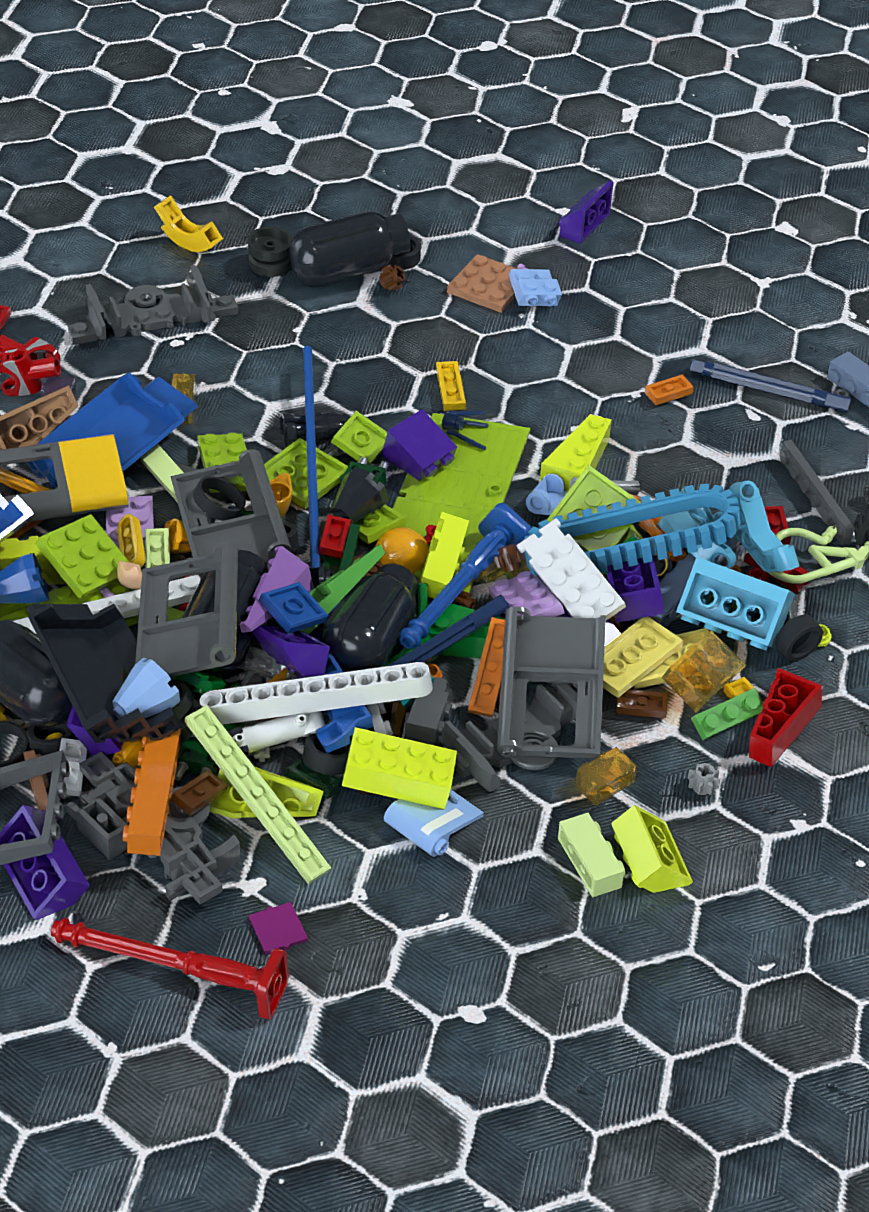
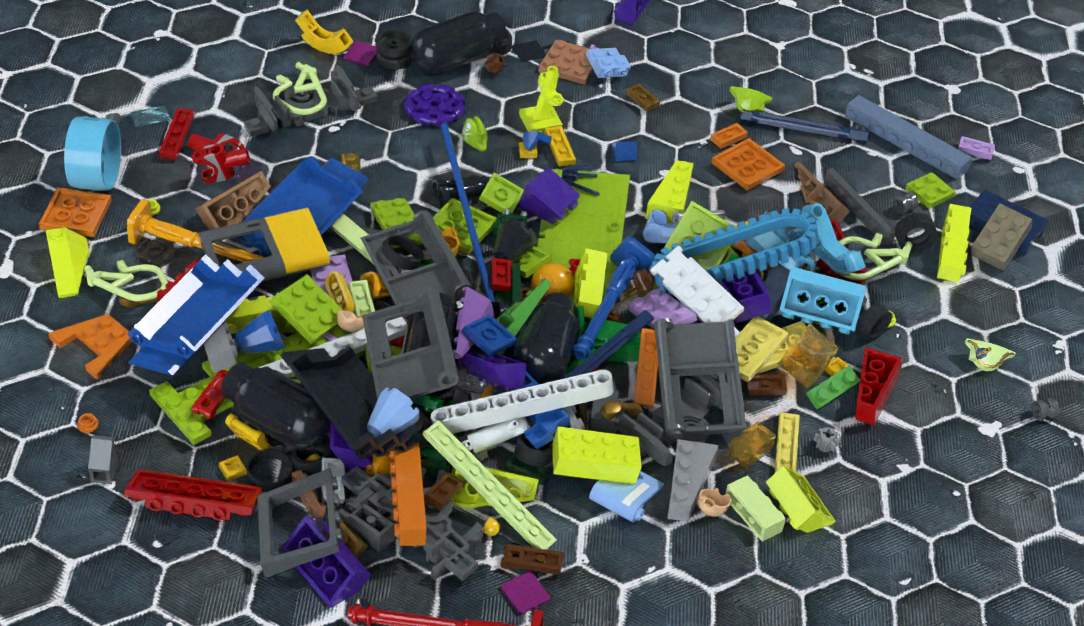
camera: 10 degrees left, 0 degrees up
(75, 838) = (352, 539): none -> pearl gold plate
(157, 272) = (307, 72): none -> yellowish green piece
(230, 254) = (361, 53): none -> magenta piece
(254, 844) = (493, 528): none -> yellow hinge
(295, 888) = (532, 559): none -> reddish brown plate
(322, 320) = (422, 107): none -> dark purple plate
(348, 362) = (475, 133): none -> lime hat
(409, 387) = (525, 153): none -> yellow tile
(418, 372) = (534, 137): none -> blue tile
(432, 712) = (612, 408): none -> pearl gold bar
(440, 343) = (544, 114): none -> neon yellow piece
(442, 266) = (530, 50): none -> black piece
(516, 804) = (690, 471): none -> light grey wedge
(531, 398) = (624, 151): none -> blue tile
(538, 841) = (712, 502): none -> light nougat hair
(570, 333) = (642, 97): none -> pearl gold plate
(654, 776) = (787, 441): none -> light yellow tile
(685, 426) = (748, 164): none -> orange plate
(705, 346) = (749, 99): none -> lime hat
(769, 476) = (816, 192): none -> medium nougat wedge

